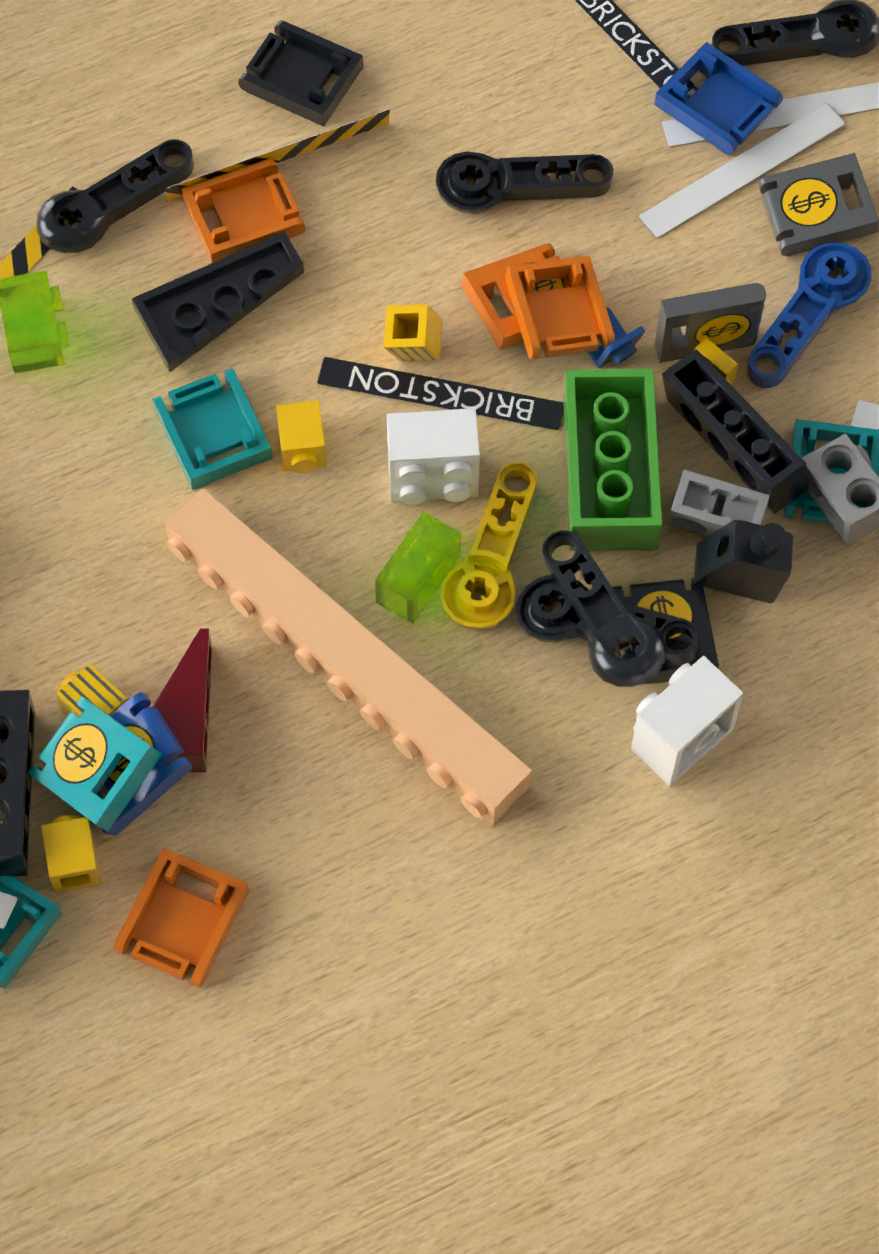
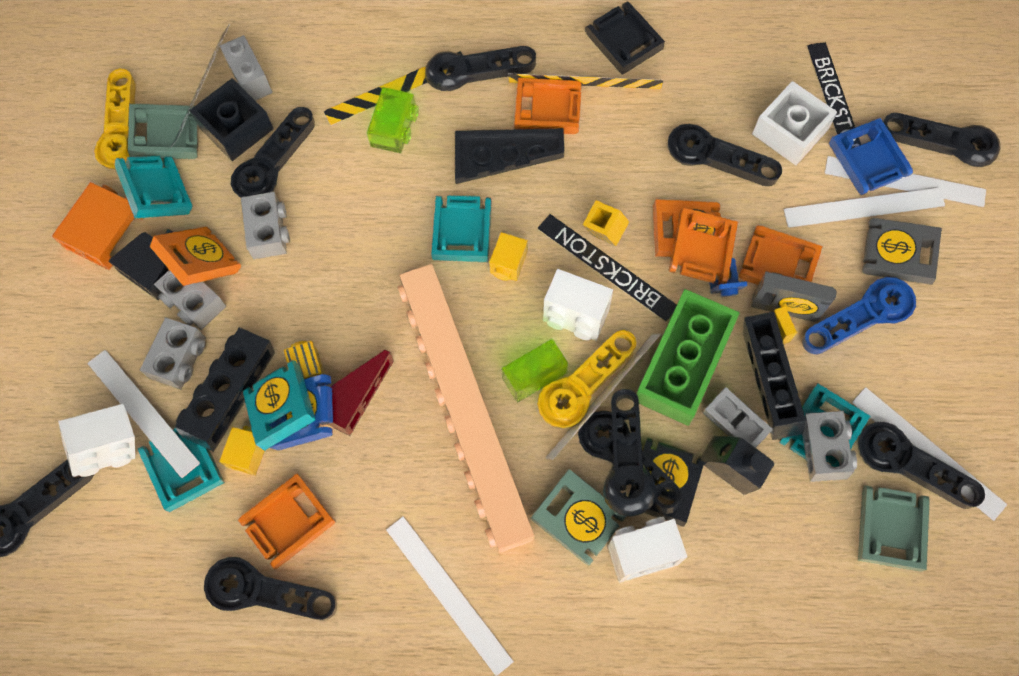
camera: 30 degrees right, 5 degrees up
(199, 1020) = (258, 590): none -> black beam
(455, 907) = (450, 596): none -> white sticker
(526, 560) = (603, 396): none -> white sticker
(584, 730) = (582, 521): none -> sand green container
(596, 95) = (794, 123): none -> white brick
(660, 273) = (779, 254): none -> orange container

